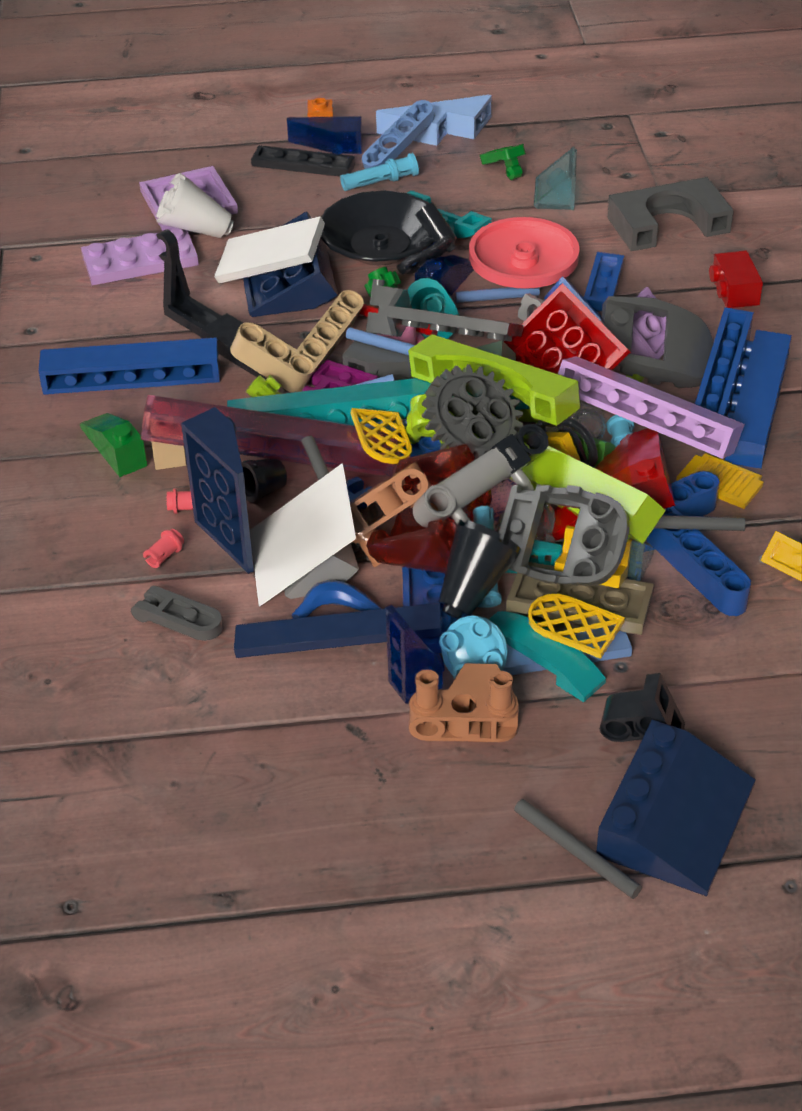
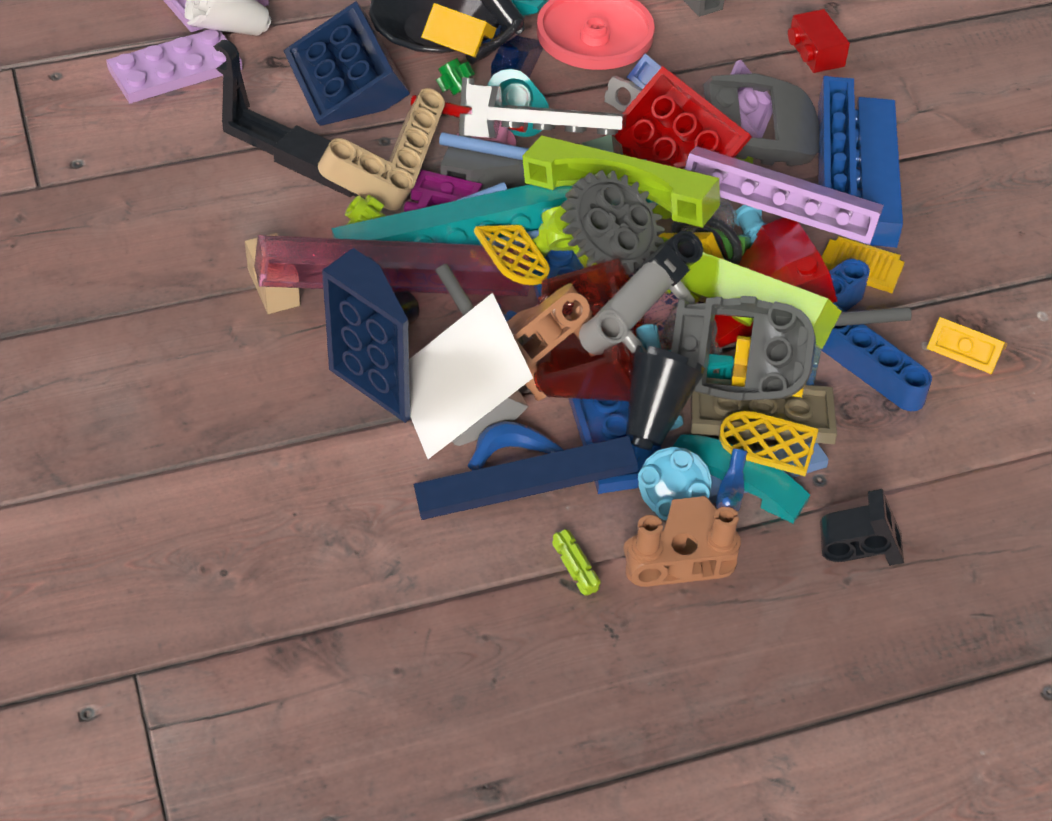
camera: 15 degrees left, 5 degrees up
(116, 442) = (218, 287): green slope -> none
(129, 366) = (206, 196): blue brick -> none
(170, 542) = (312, 399): coral pin -> none
(178, 614) = (347, 478): dark grey plate -> none
(179, 500) = (310, 348): coral pin -> none
(270, 250) = (325, 48): white tile -> none
(364, 710) = (576, 562): none -> lime axle
(389, 241) = (456, 30): none -> yellow panel
(408, 656) = (615, 502): clear blue slope -> none
(494, 294) = (573, 77): medium blue bar -> none
(526, 660) = (732, 486): none -> blue piece
(578, 849) = (834, 683): dark grey bar -> none
(603, 279) = (684, 52): blue plate -> none
(675, 810) = (920, 629): dark blue slope -> none

